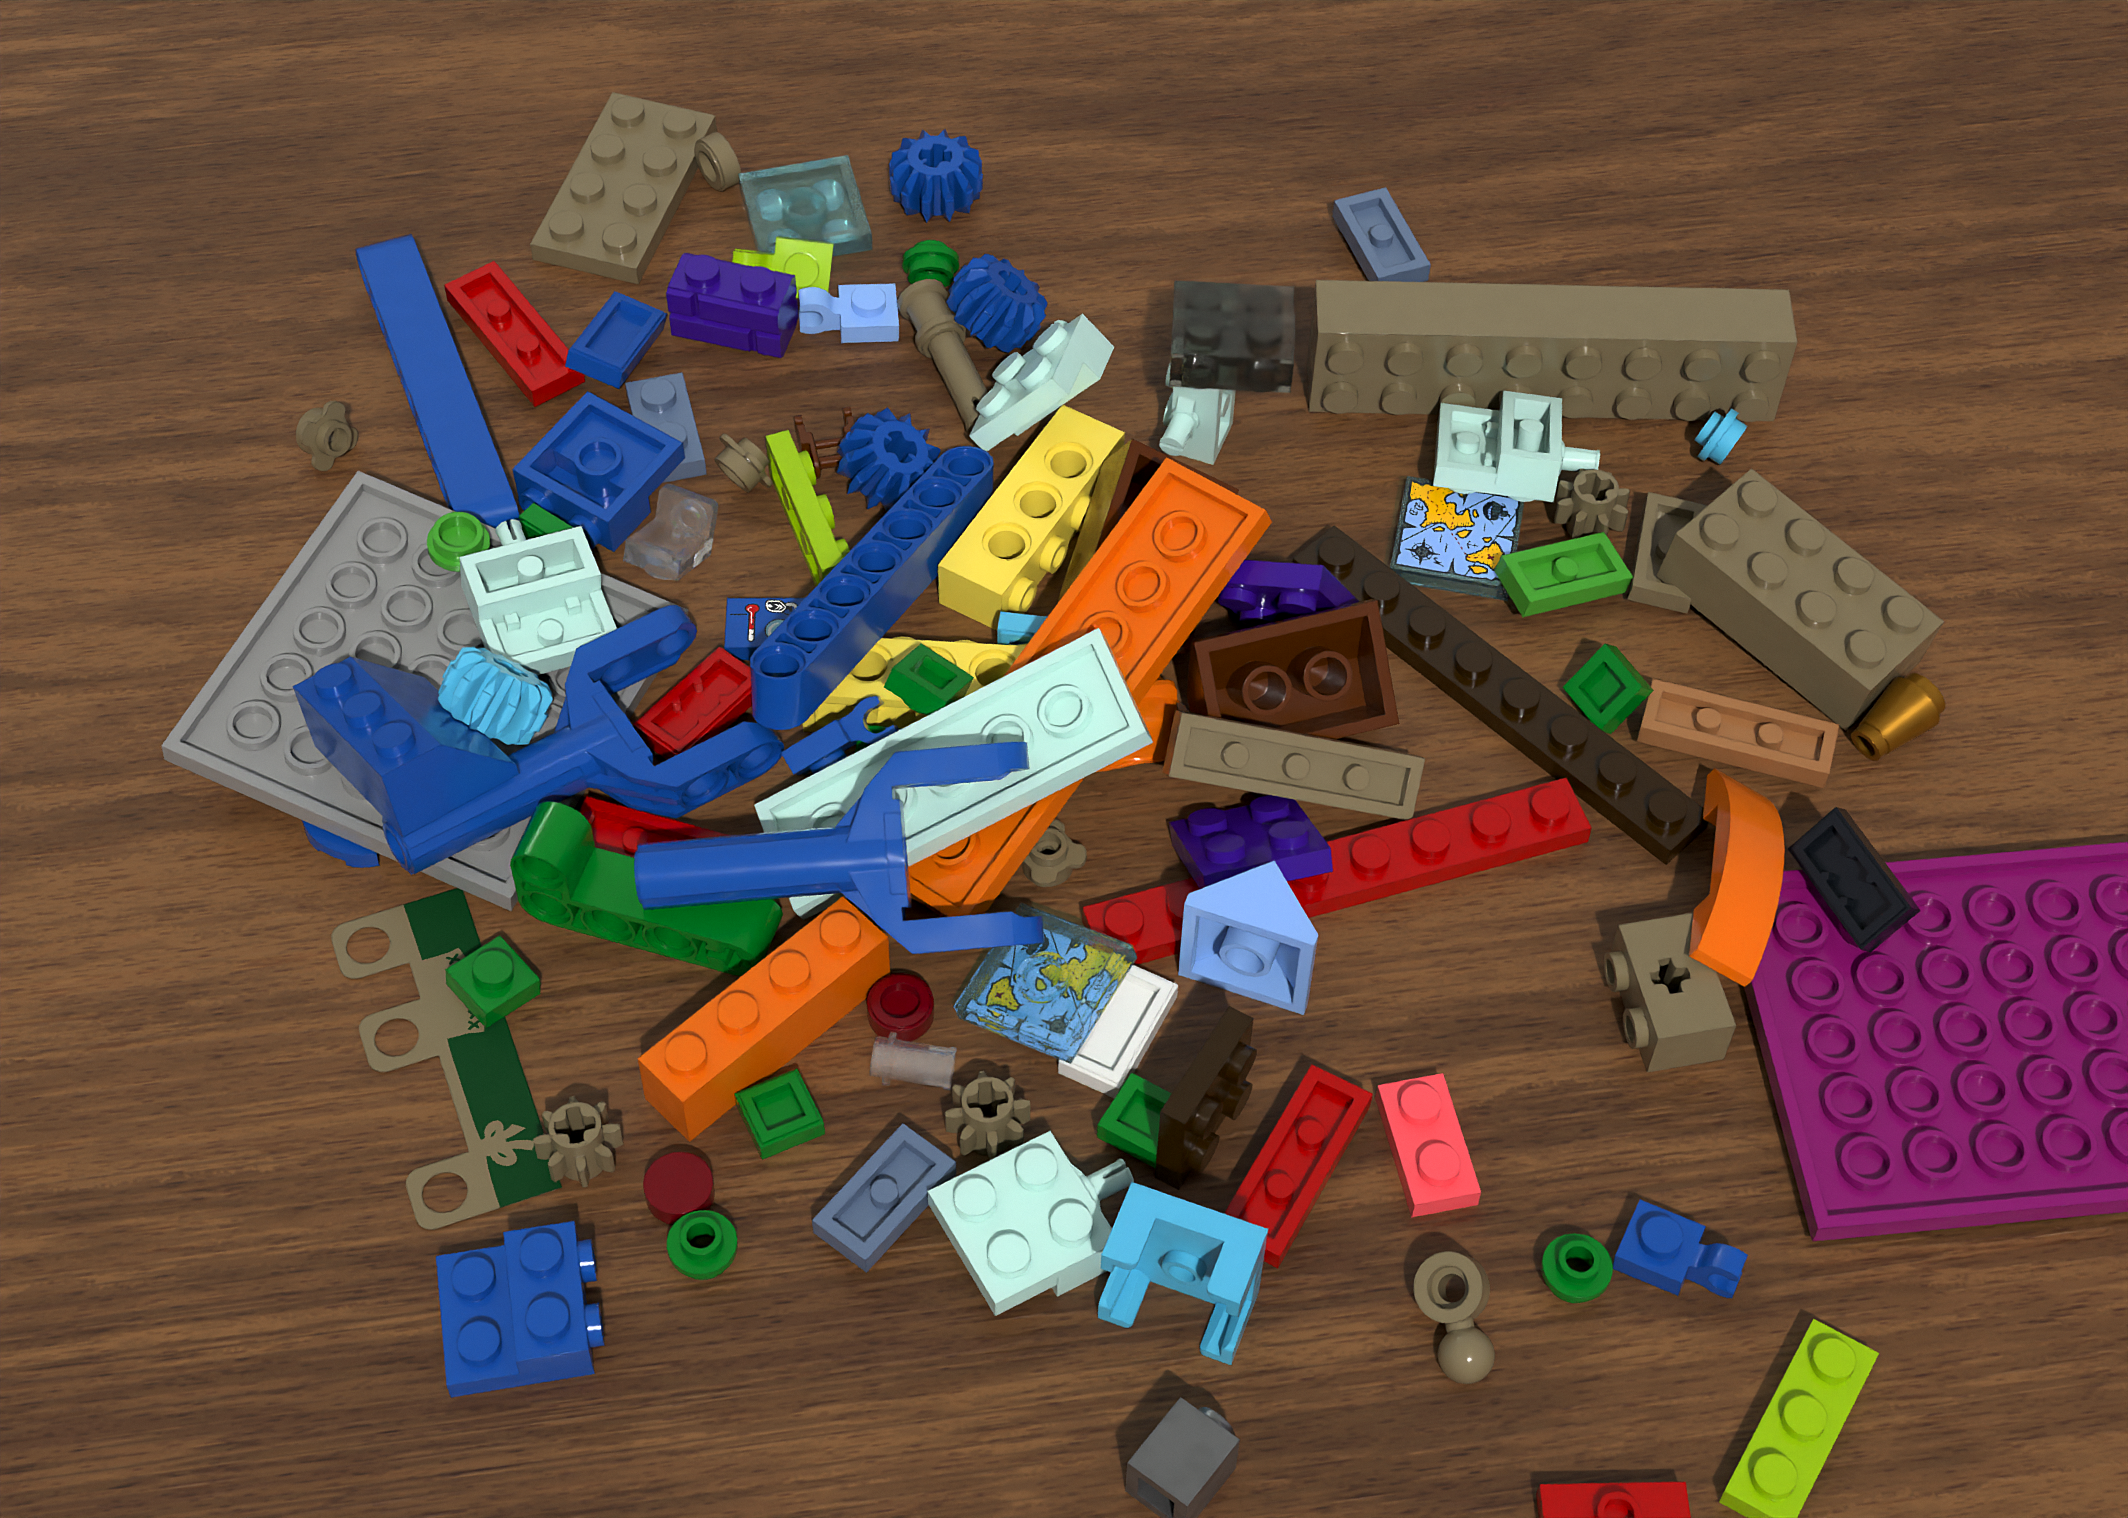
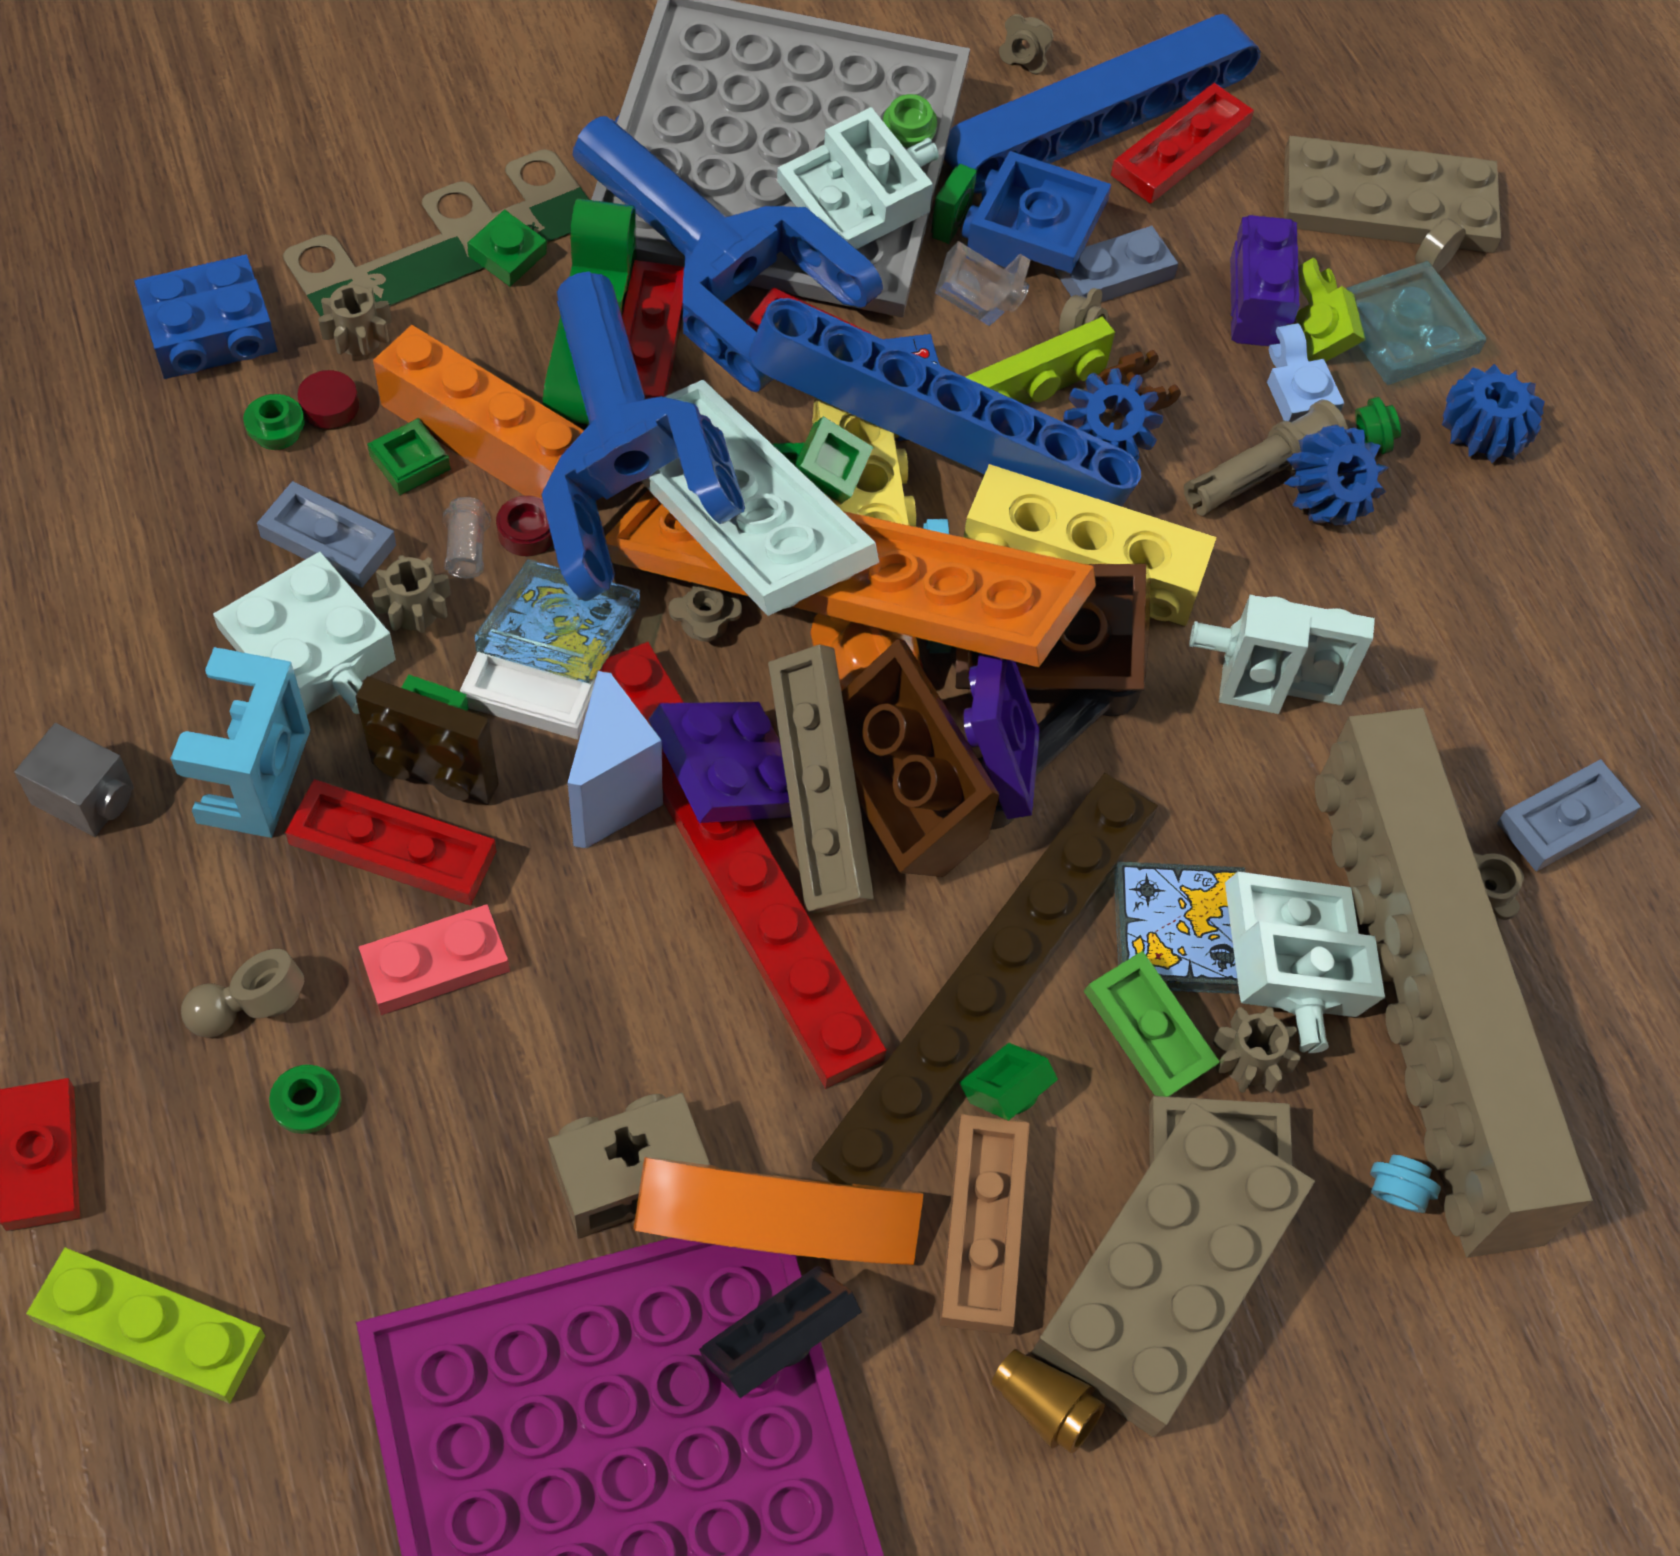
camera: 75 degrees right, 5 degrees up
(398, 742) = (674, 103): blue slope -> none
(495, 696) = (737, 158): medium azure gear -> none
(616, 340) = (1193, 207): blue tile -> none
(829, 743) = (774, 420): blue plate -> none
(1033, 385) = (1235, 508): light aqua plate -> none
(1232, 336) = (1304, 630): clear smoke plate -> none
(1667, 1250) = (332, 1186): blue plate -> none

